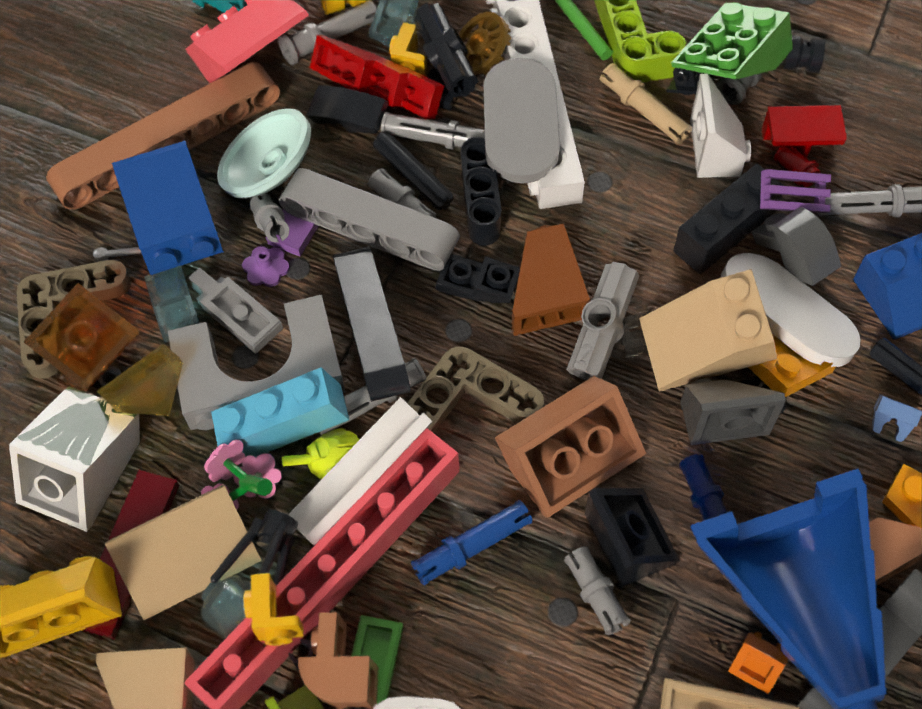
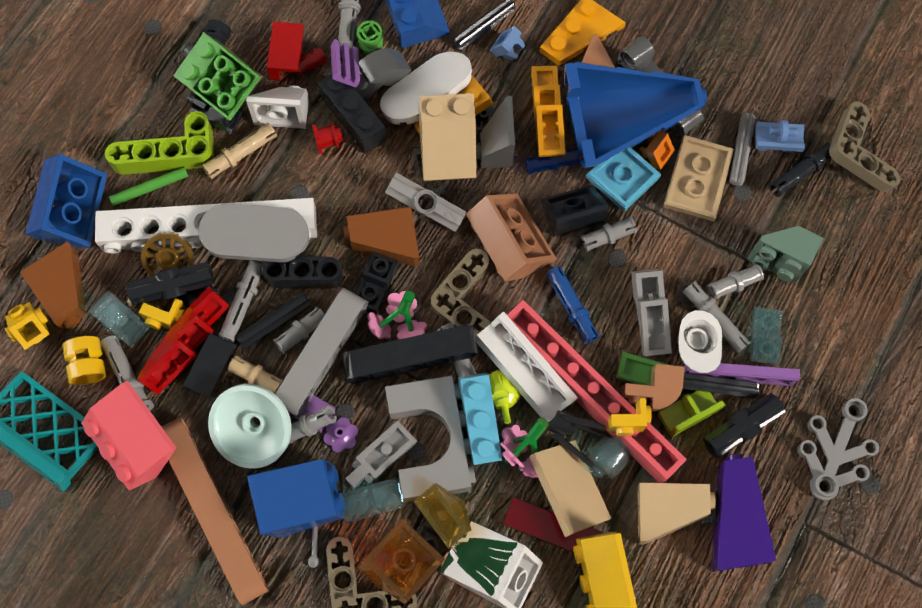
camera: 90 degrees left, 10 degrees up
(337, 159) = (254, 374): none -> tan pin
(440, 308) = (400, 309): none -> bright pink plant
(472, 661) = (652, 311): none -> light grey slope
(683, 194) = (327, 136): none -> red brick
(699, 609) = (623, 178): none -> medium azure plate
(779, 478) = (547, 111): none -> light orange slope
(853, 229) = (369, 37): none -> bright green wheel

